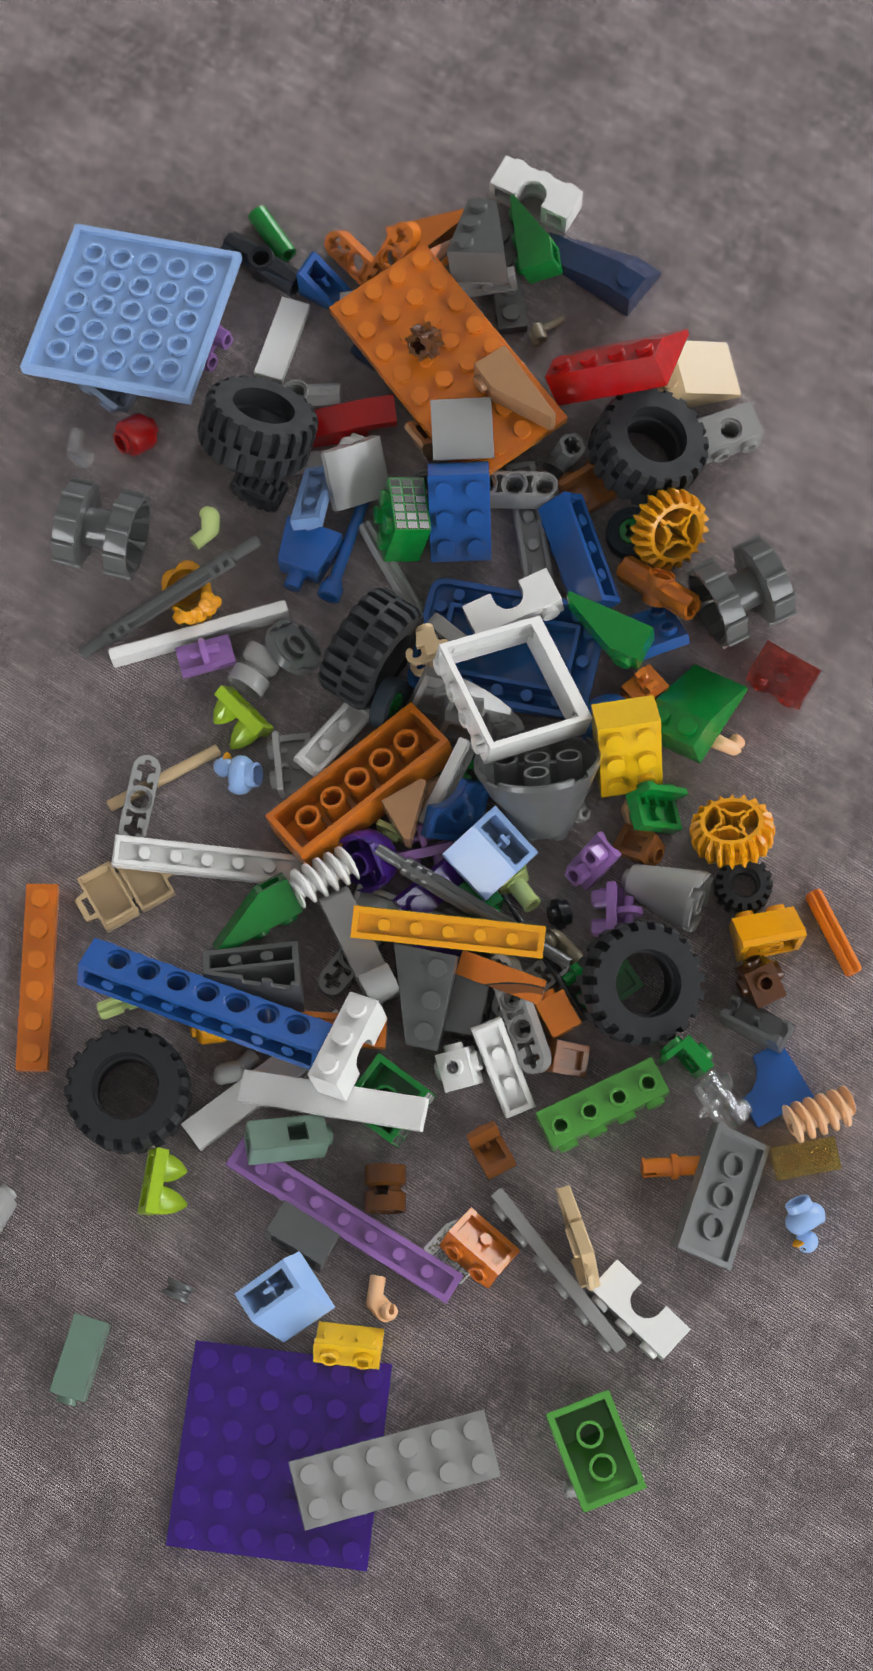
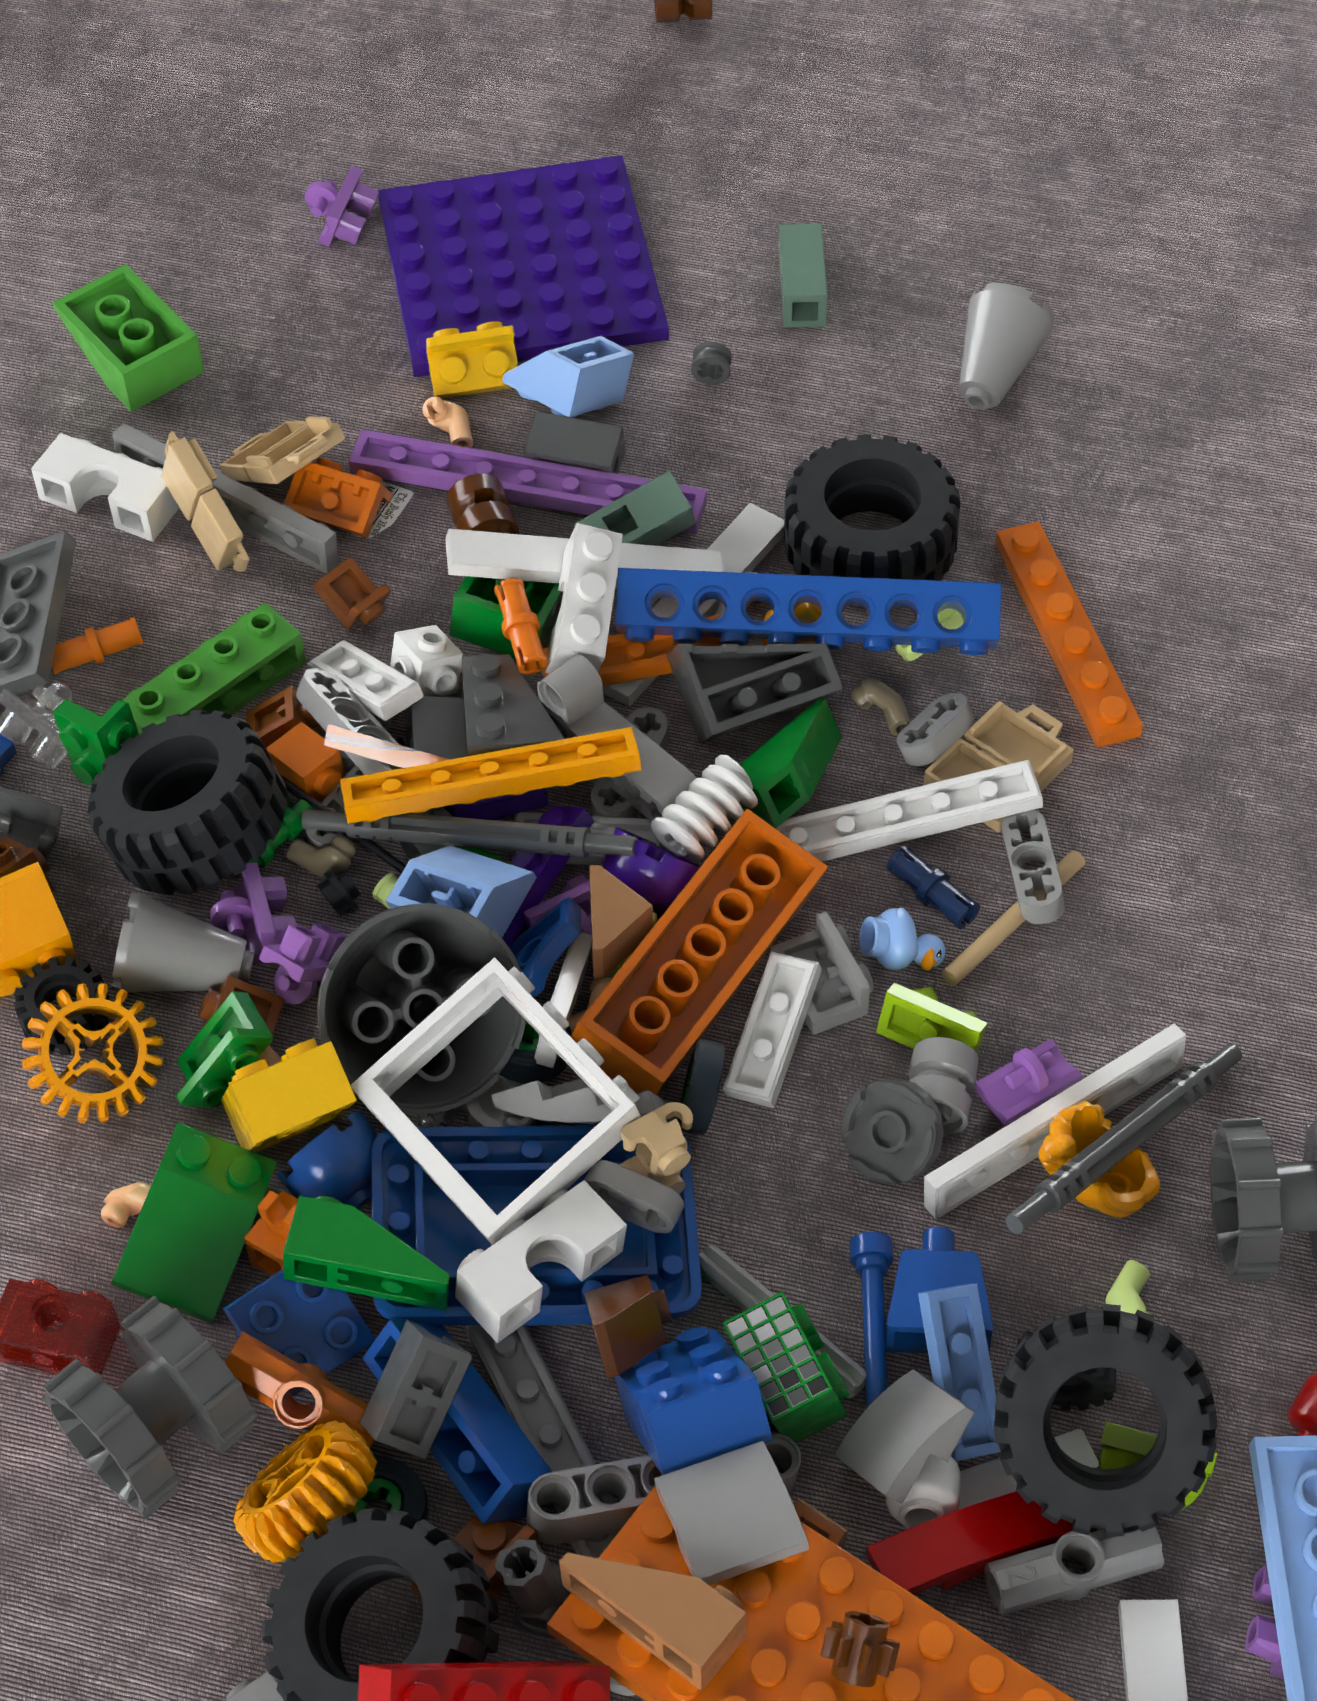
camera: 160 degrees right, 20 degrees down
(150, 913) = (935, 729): none -> light grey beam
(154, 1196) = (781, 441): lime tile -> none
(174, 955) = (888, 700): none -> dark tan arm
(203, 810) = (933, 887): none -> dark blue pin
(369, 647) = (752, 1117): black tyre -> none
(393, 1048) = (520, 626): none -> orange pin
(394, 1469) = (372, 268): light grey plate -> none
(403, 1559) = (326, 200): none -> medium lavender hips
(479, 561) = (627, 1322): none -> reddish brown slope
(509, 1291) = (283, 451): none -> tan piece
(600, 555) = (415, 1390): none -> dark grey hinge

